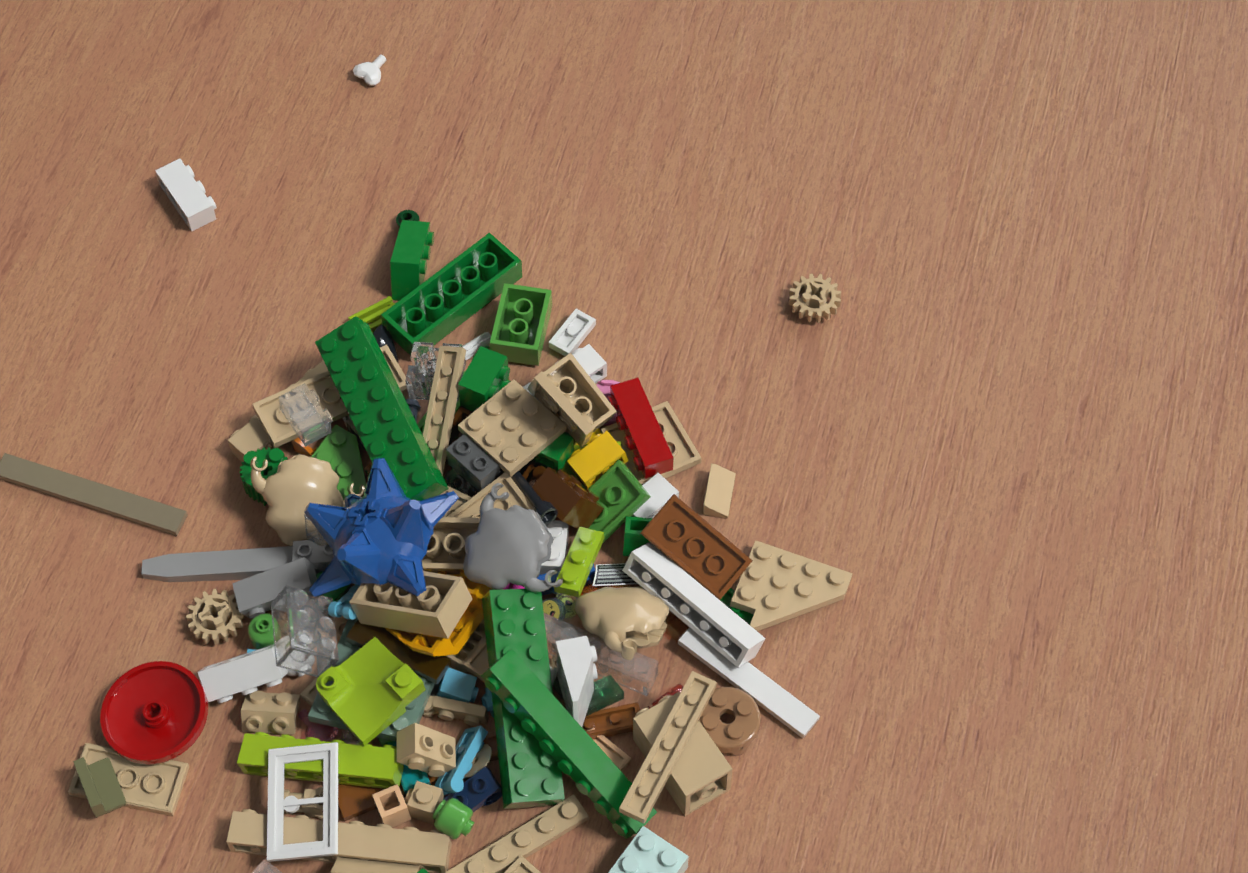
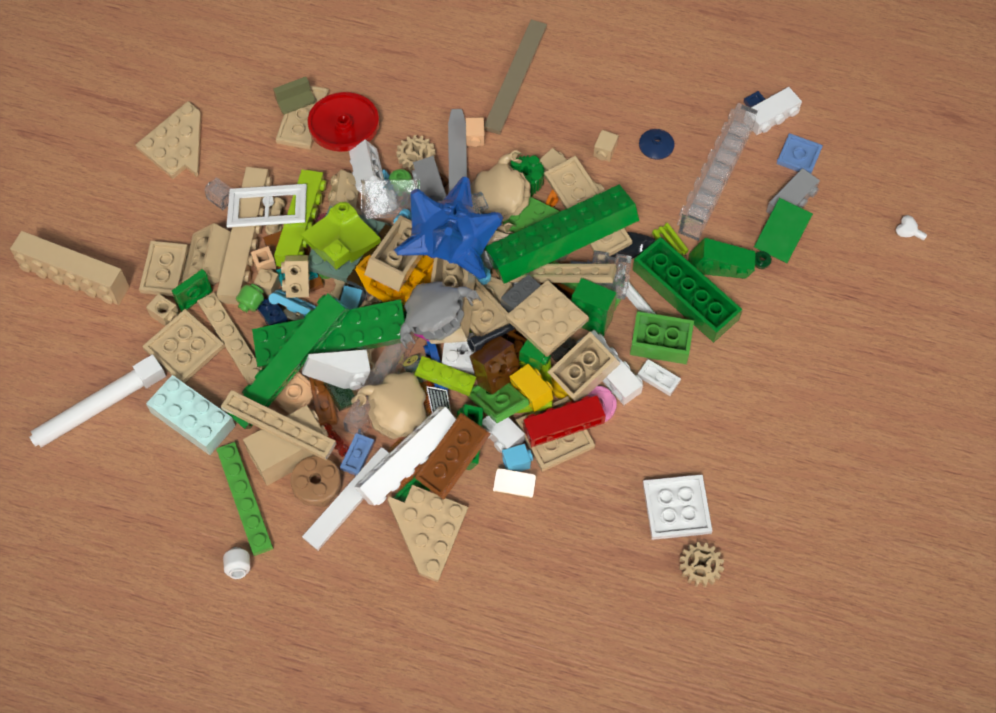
camera: 90 degrees right, 5 degrees up
(166, 215) = (754, 99): none -> dark blue tile
(188, 537) = (474, 132): none -> light nougat brick
(221, 336) = (654, 149): none -> dark blue dish
(224, 382) = (605, 145): none -> tan brick
(252, 173) = (799, 154): none -> medium blue tile
(281, 253) = (716, 171): none -> clear brick
(305, 414) = (563, 187): clear brick -> none
(318, 180) = (797, 190): none -> light grey brick
(372, 190) = (783, 230): none -> green tile
(562, 406) = (554, 345): tan plate -> none
(678, 669) = (357, 454): none -> medium blue plate
(689, 485) = (517, 458): none -> medium azure brick
(743, 320) = (677, 507): none -> white plate
(751, 814) = (244, 499): none -> bright green plate
(846, 811) = (236, 563): none -> white head

